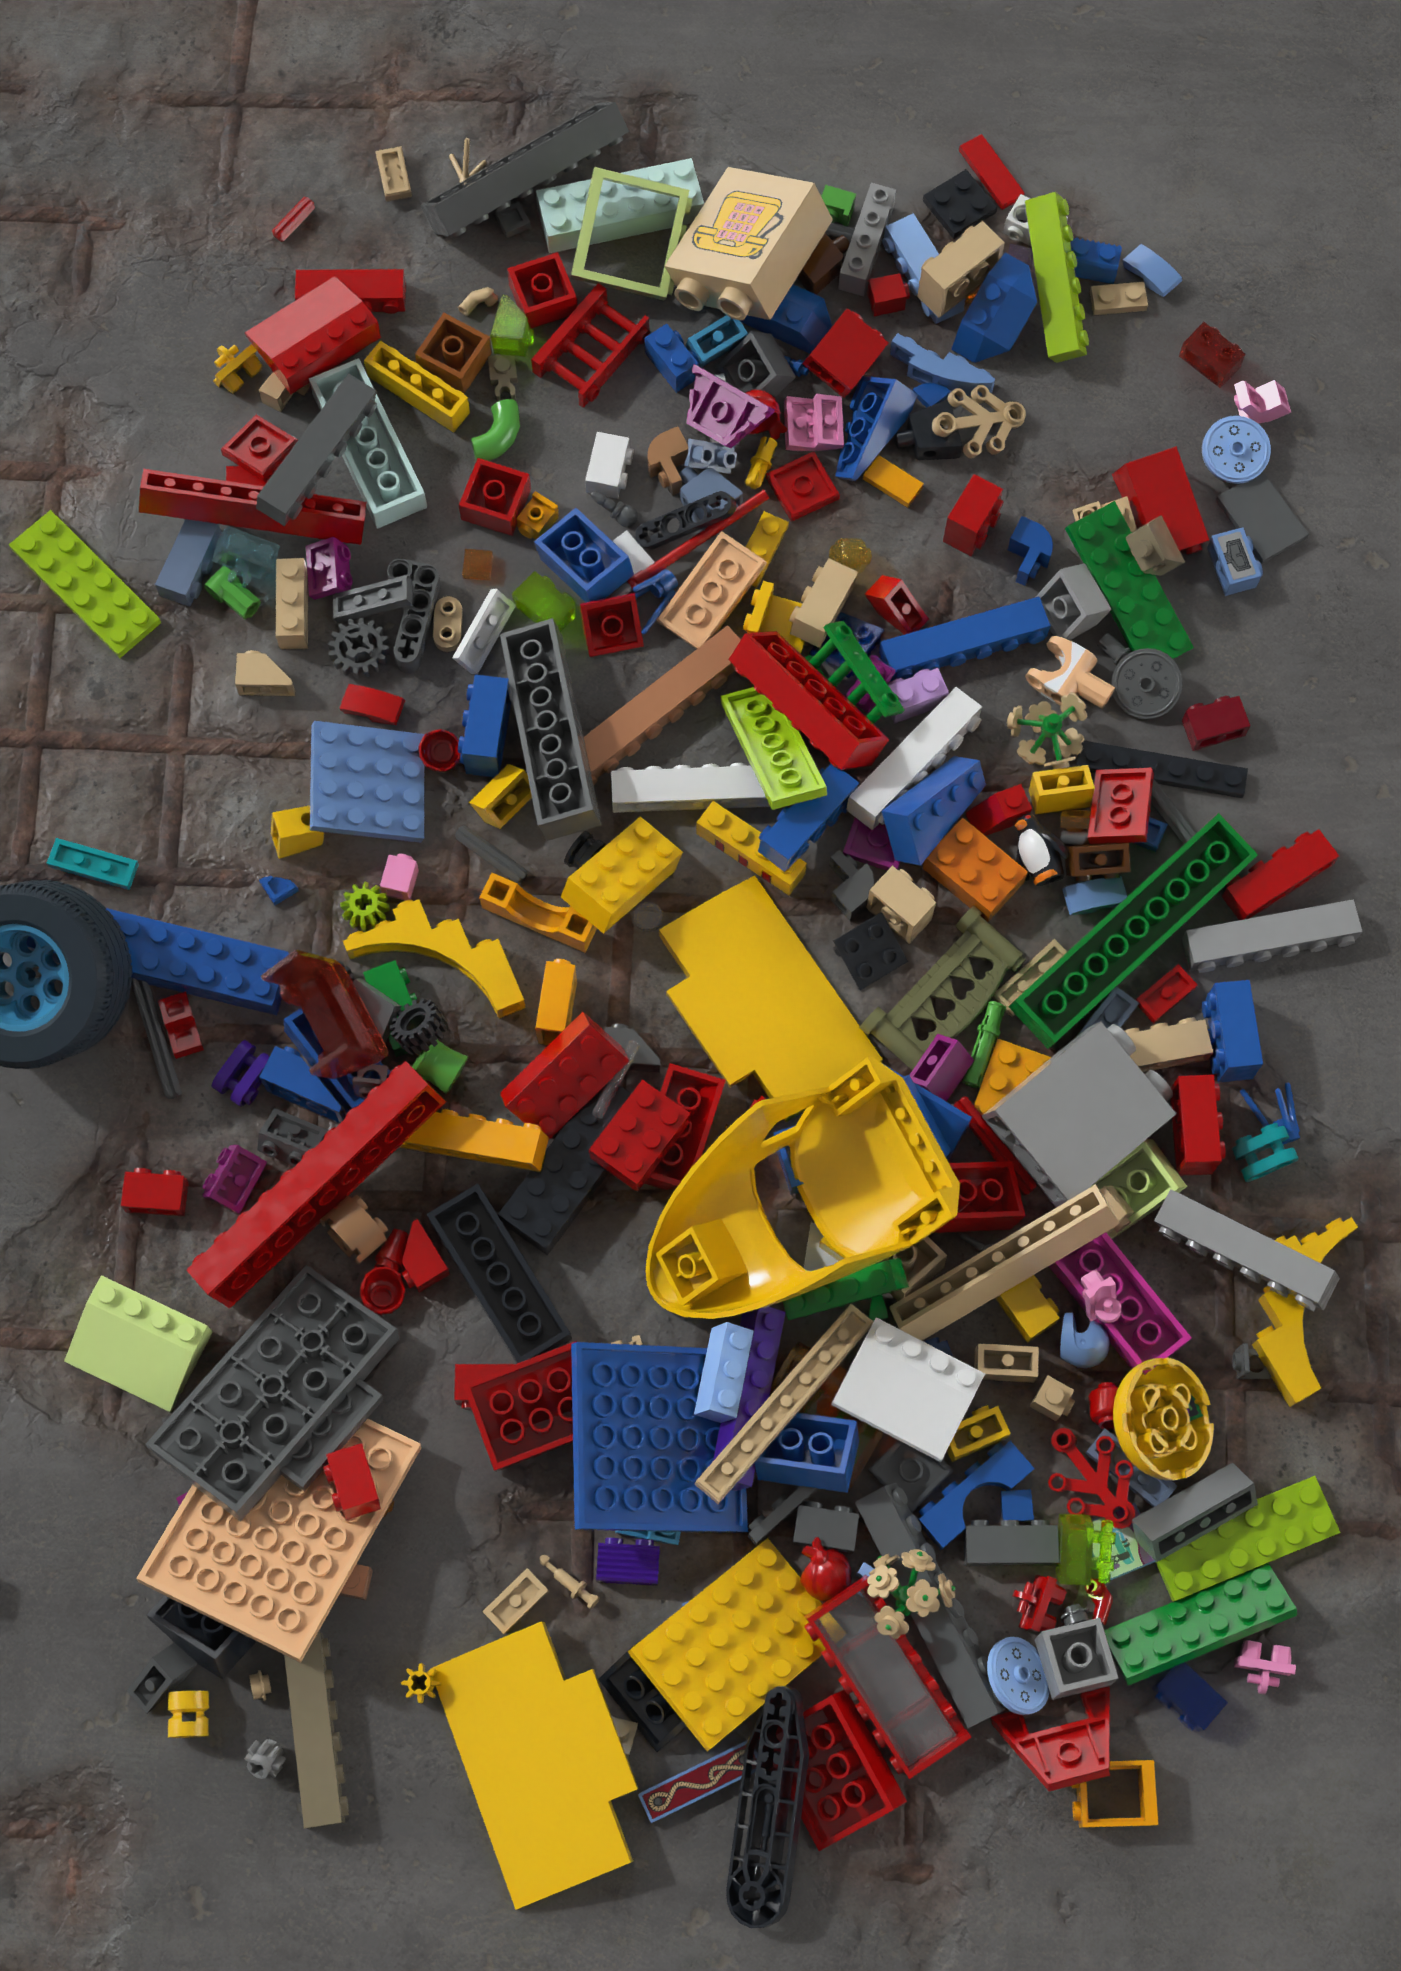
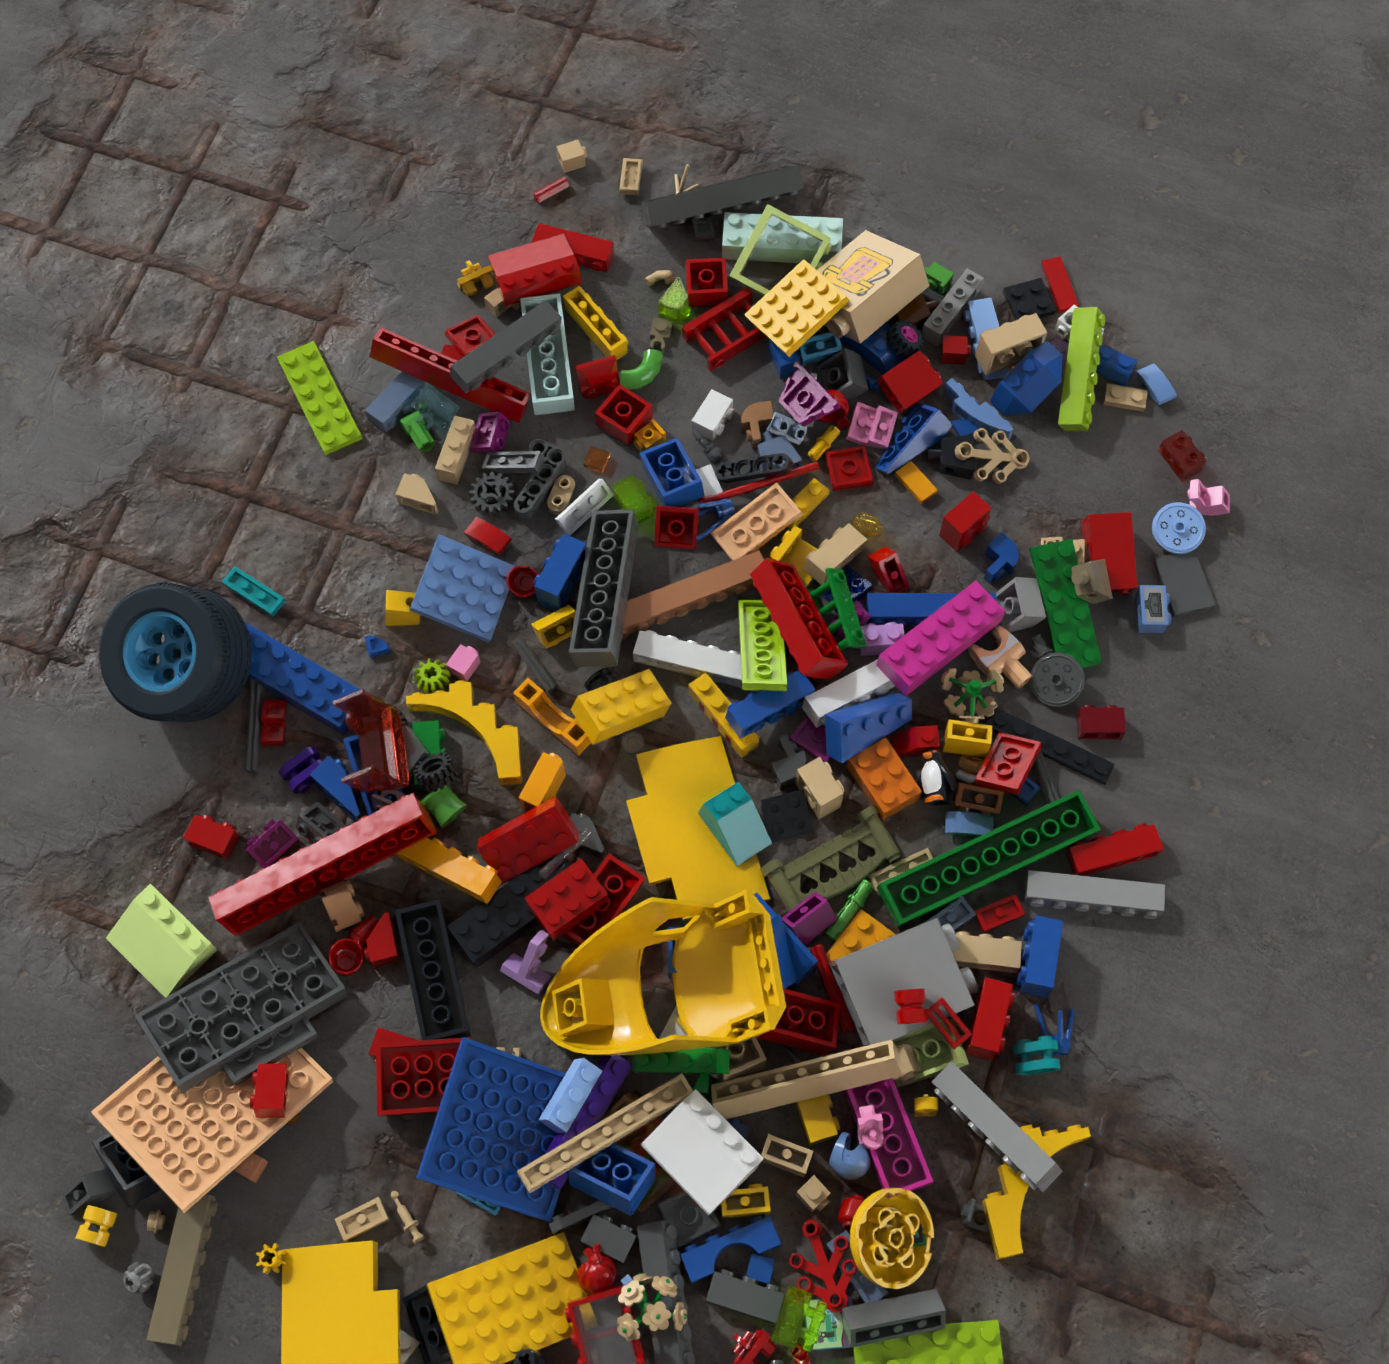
camera: 20 degrees right, 5 degrees down
(305, 166) = (571, 155): none -> tan brick
(445, 457) = (598, 377): none -> red slope
(454, 352) = (629, 308): dark orange brick -> none
(616, 1239) = (526, 969): none -> lavender bracket
(628, 1563) = (453, 1217): dark purple brick -> none
(675, 295) = (796, 307): none -> yellow plate
(812, 979) = (735, 823): none -> teal slope
(823, 298) = (904, 338): none -> black wheel
(992, 673) = (940, 638): none -> dark pink brick
(1104, 1138) = (910, 1006): none -> red wheel
(1131, 1131) = (960, 1039): none -> red tile
(1153, 1252) = (925, 1106): none -> yellow piece

